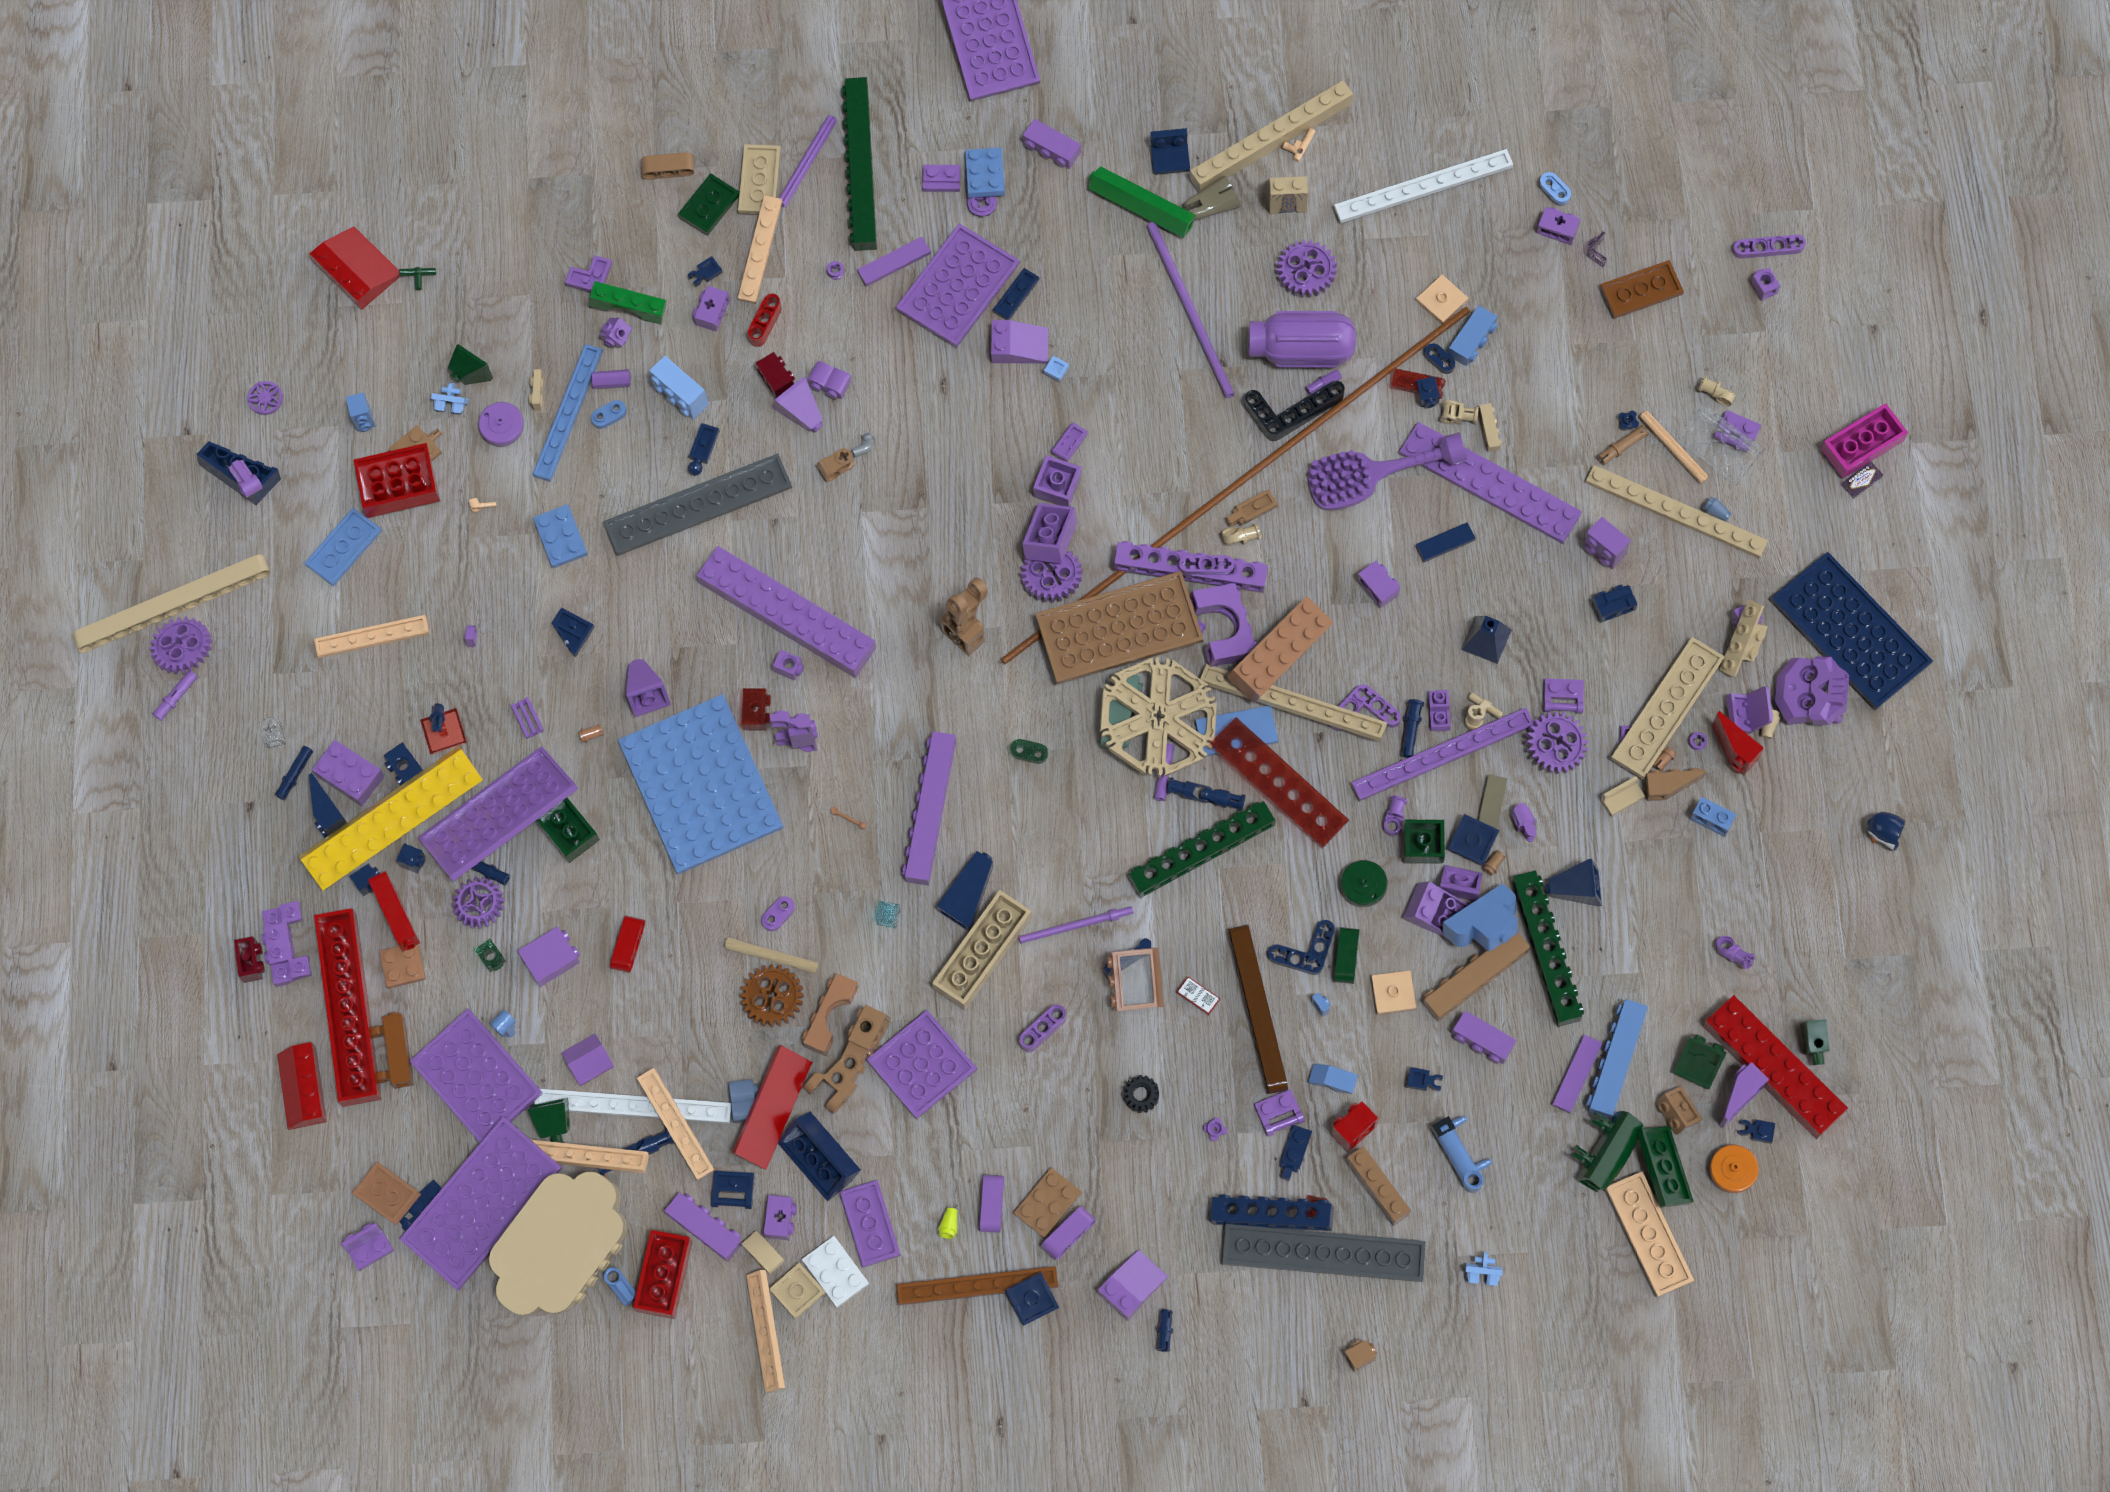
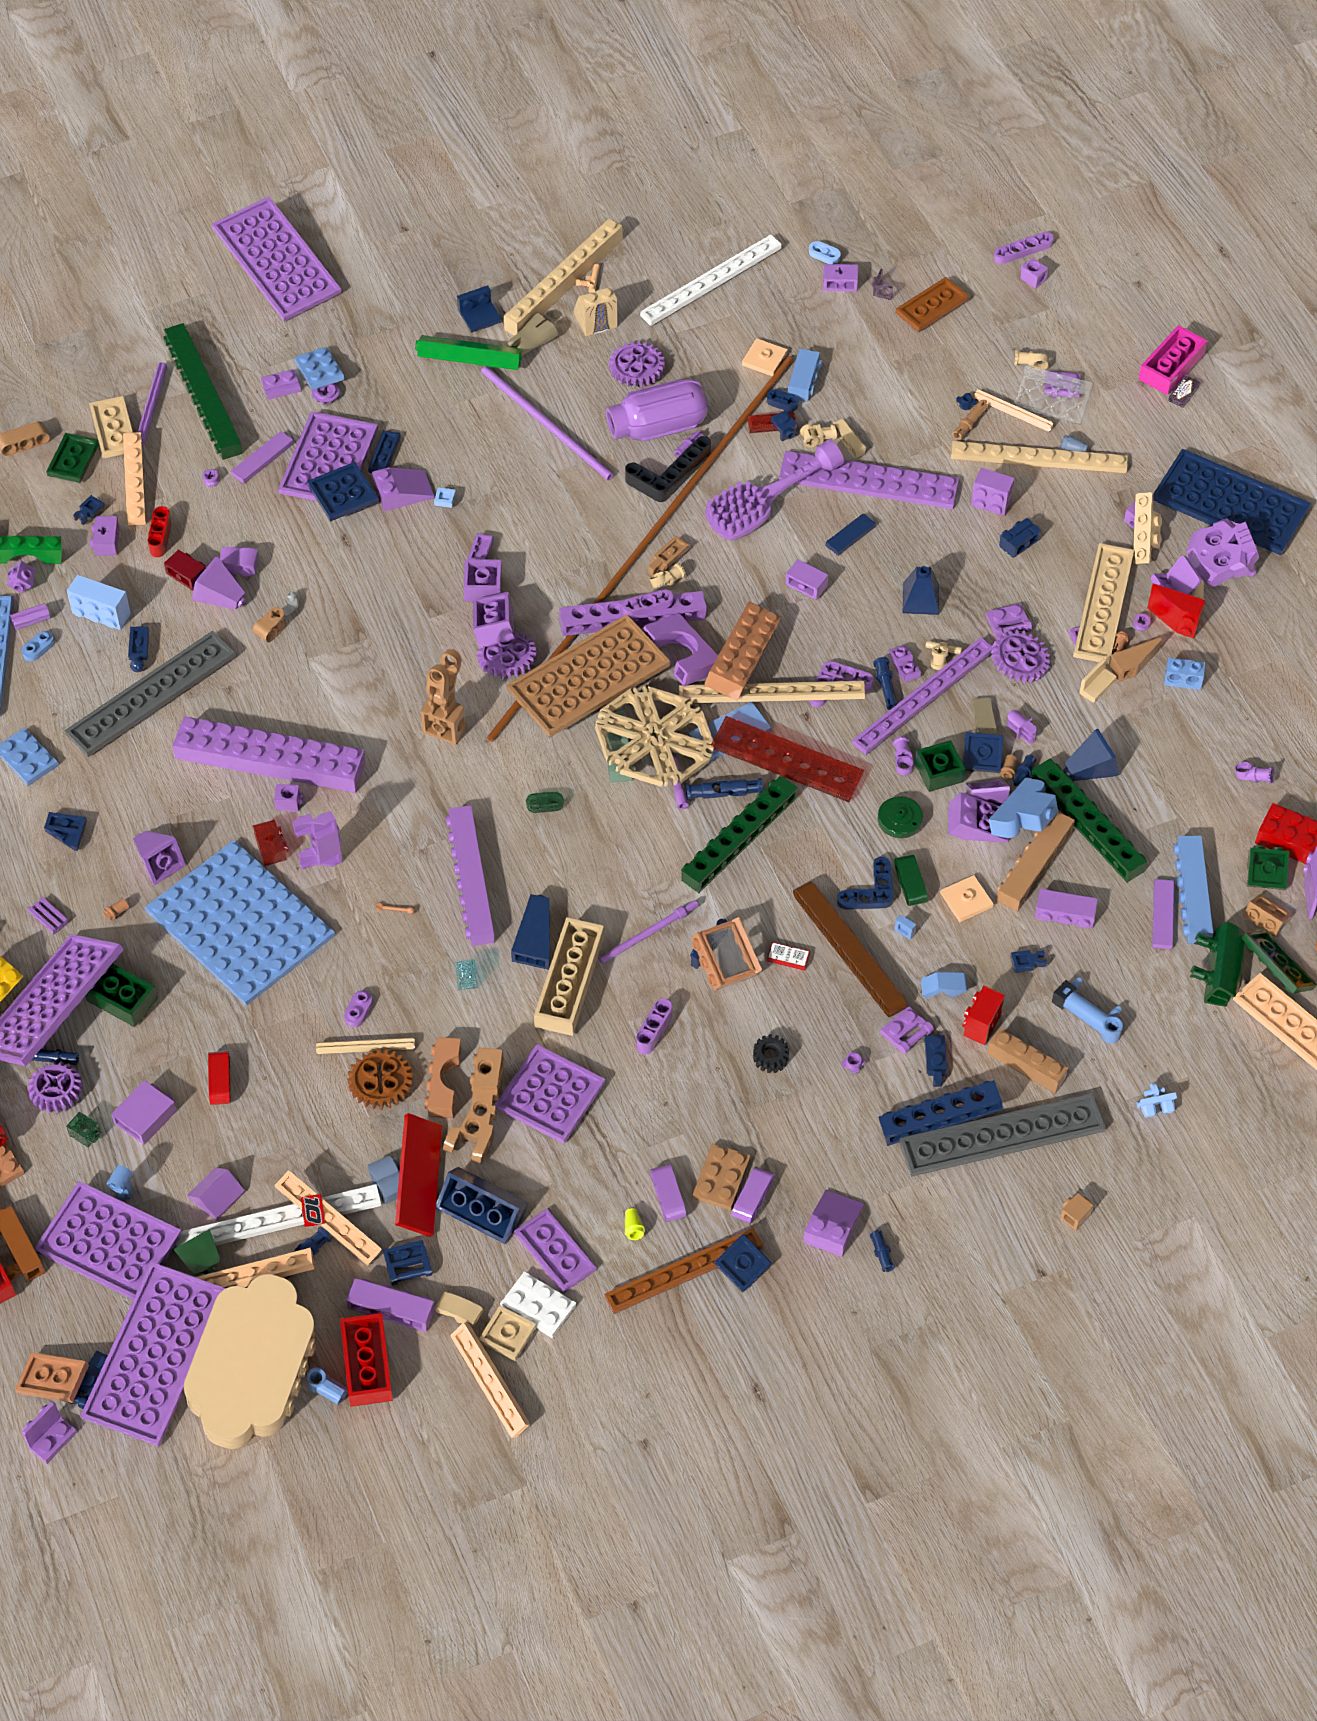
camera: 25 degrees left, 15 degrees down
(663, 1113) = (312, 1210): none -> sticker
(776, 1206) = (461, 1261): medium lavender brick -> none
(955, 333) = (342, 491): none -> dark blue plate
(1051, 144) = (370, 332): medium lavender brick -> none
(1507, 871) = (1024, 770): none -> dark blue axle

